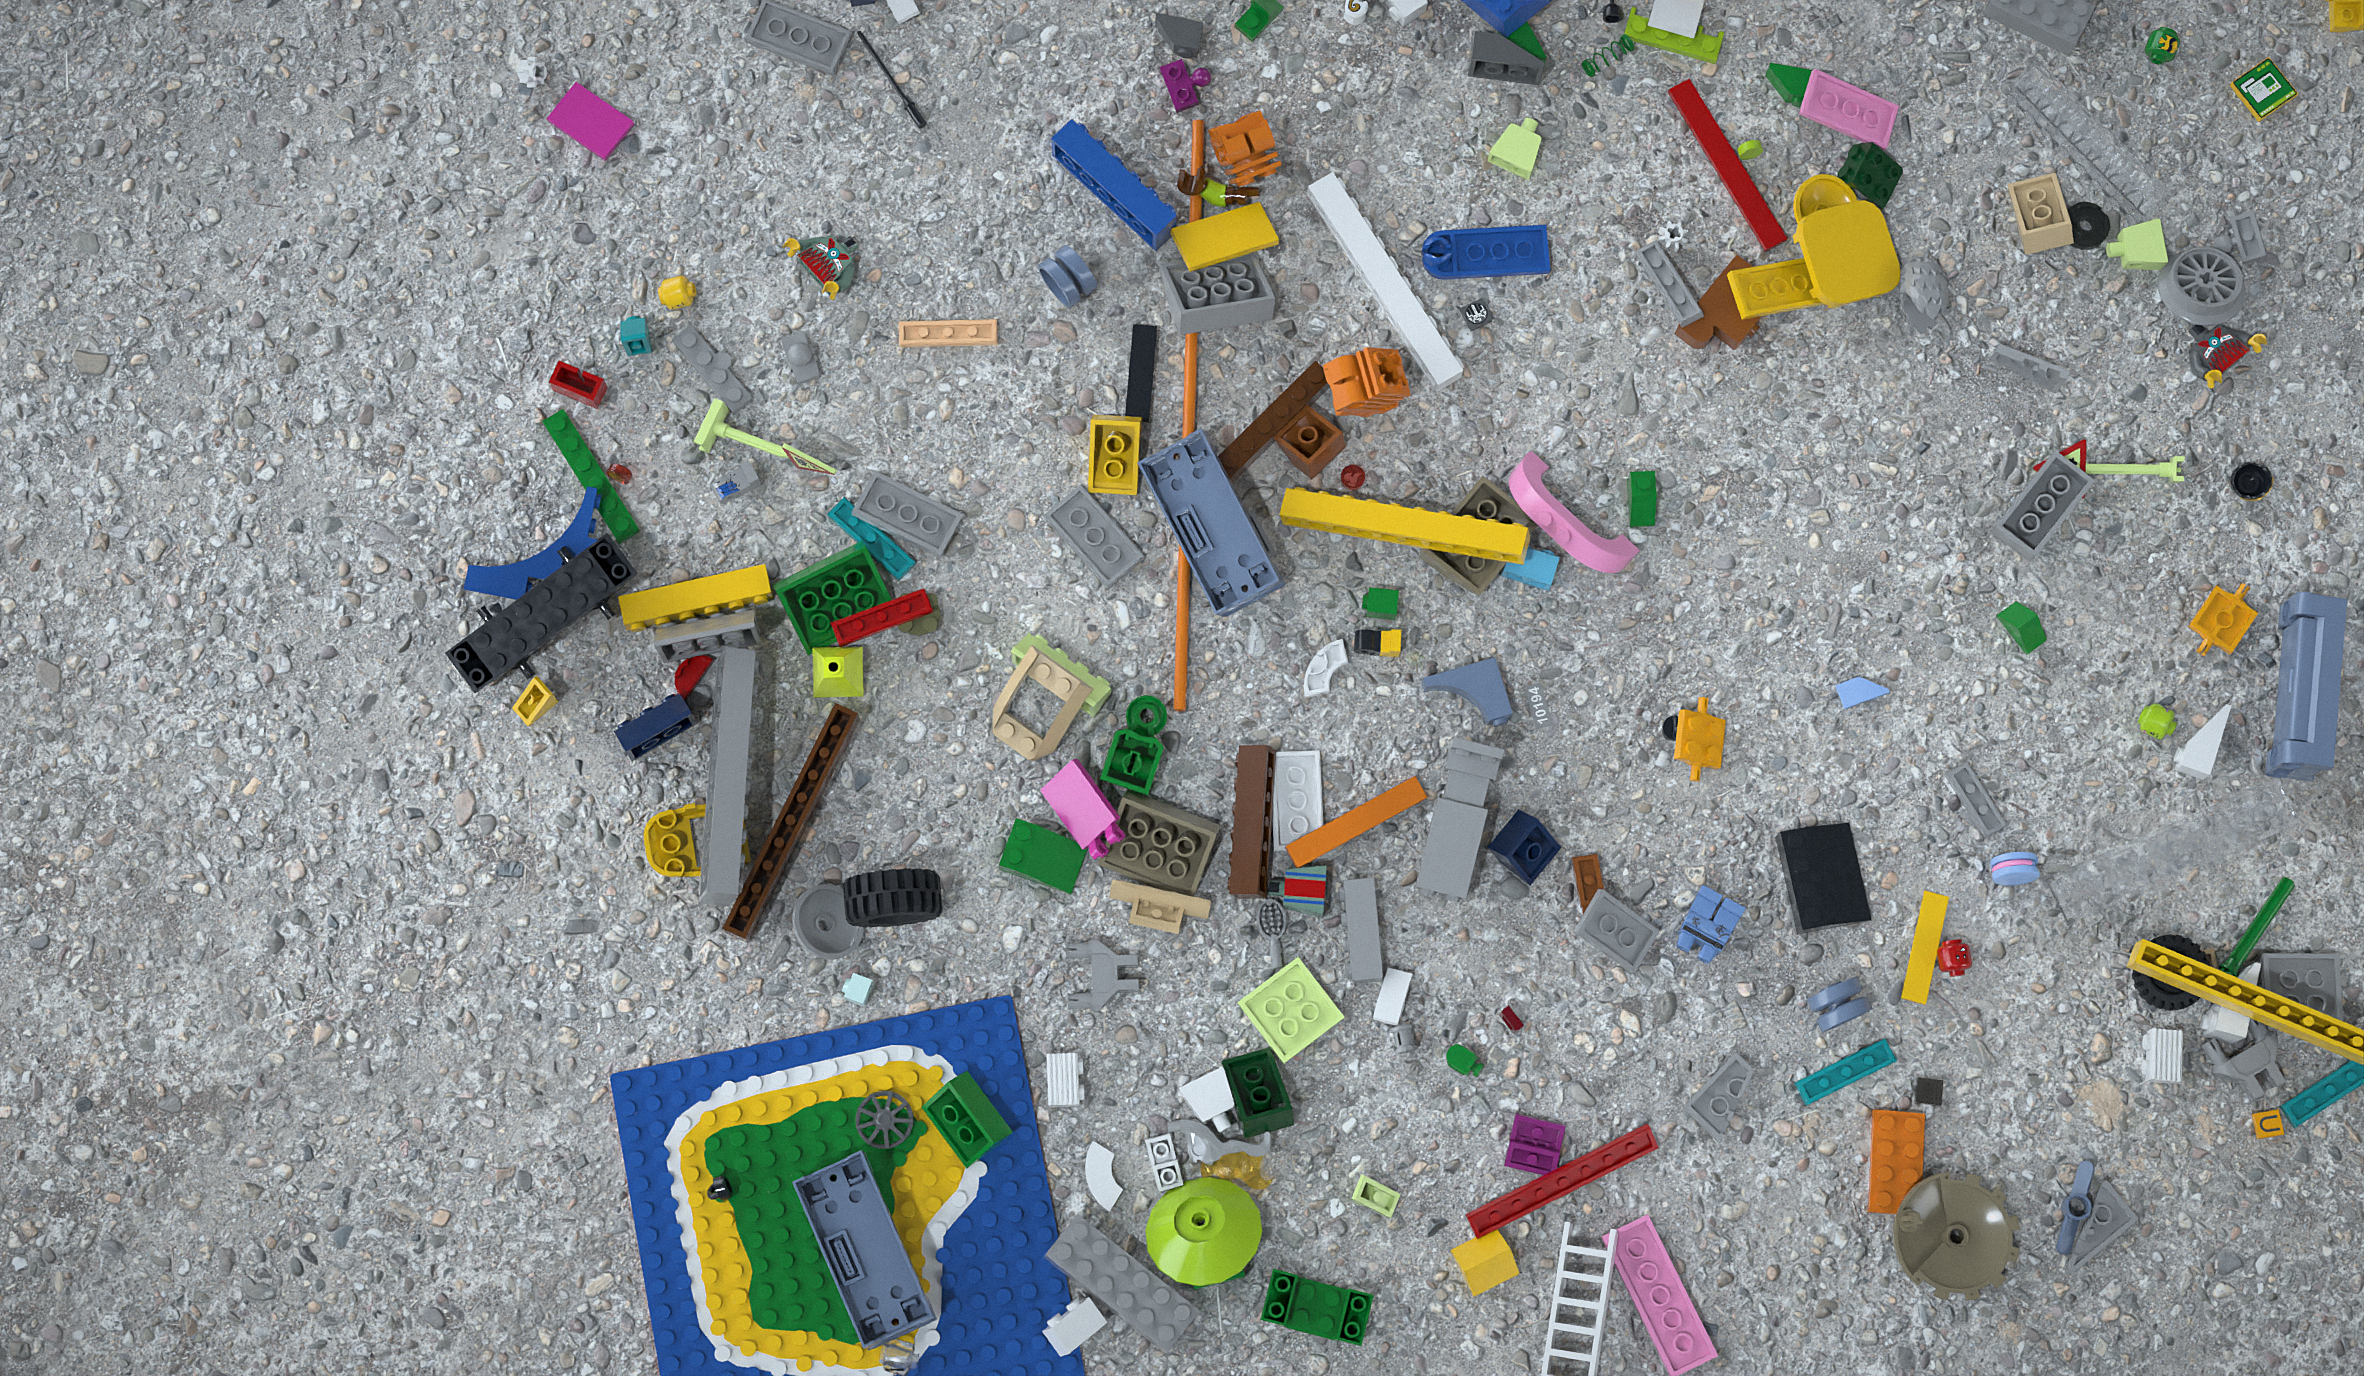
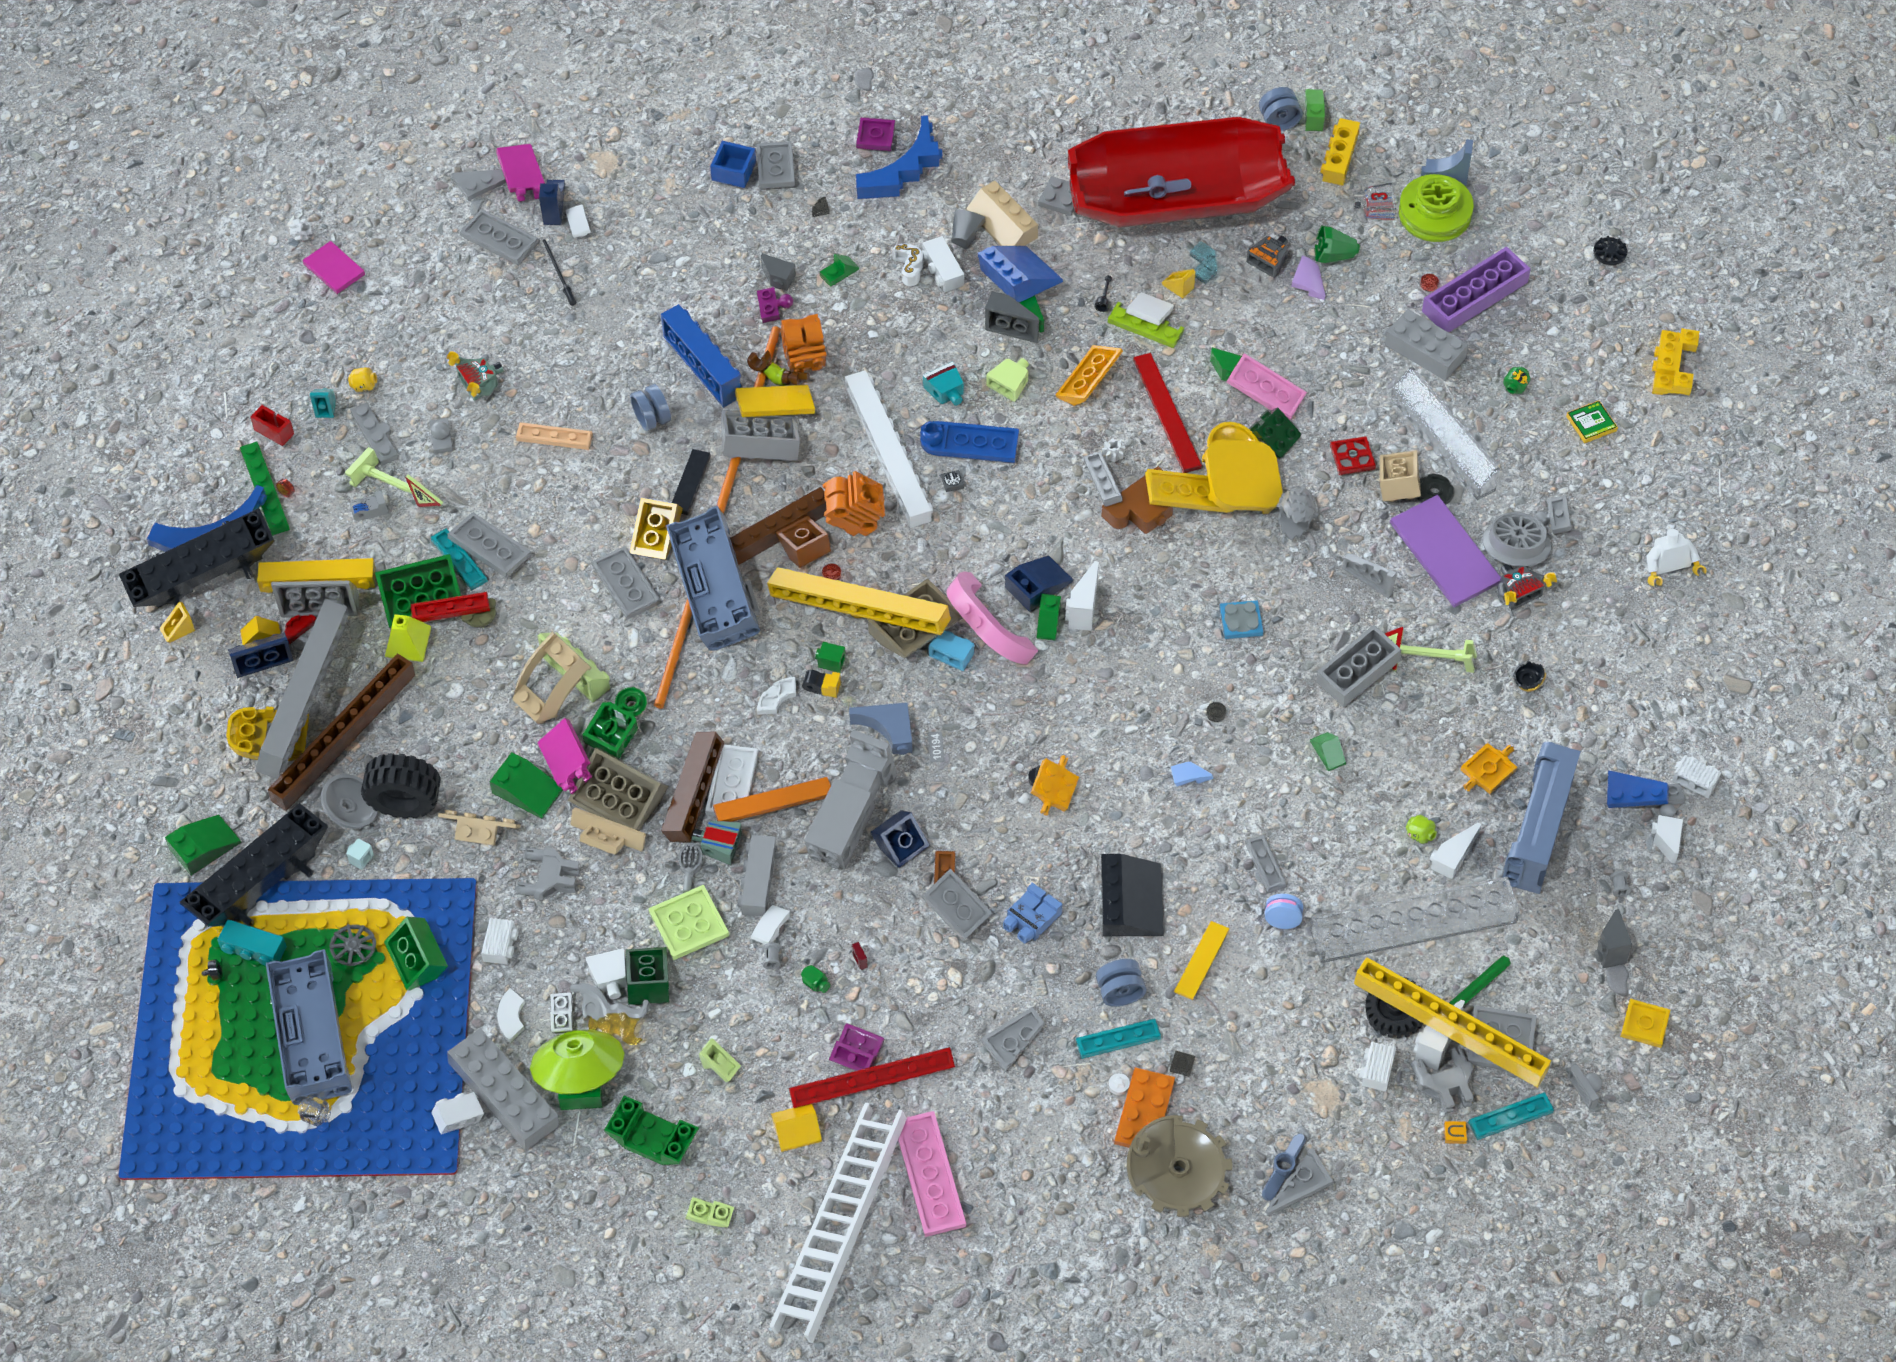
camera: 15 degrees right, 20 degrees down
(644, 692) = (259, 629): none -> yellow slope
(655, 1007) = (201, 842): none -> green slope
(737, 1043) = (259, 866): none -> black piece
(758, 1144) = (251, 943): none -> teal brick
(996, 926) = (477, 829): none -> tan bracket
(1437, 172) = (945, 384): none -> teal torso
(1591, 73) = (1075, 334): green piece -> none
(1617, 125) = (1088, 374): none -> light orange slope
(1617, 448) = (1035, 578): none -> dark blue slope
(1684, 478) = (1082, 601): none -> white slope
(1750, 149) = (1185, 403): lime tile -> none
(1859, 1134) = (1119, 1084): none -> white tile
(1874, 596) = (1216, 712): none -> clear smoke tile
(1880, 457) = (1241, 619): none -> piece
(1954, 957) = (1222, 967): red head -> none
(1974, 192) = (1352, 455): none -> red piece
(2115, 314) = (1445, 551): none -> medium lavender tile
(2140, 246) = (1473, 508): yellowish green torso -> none

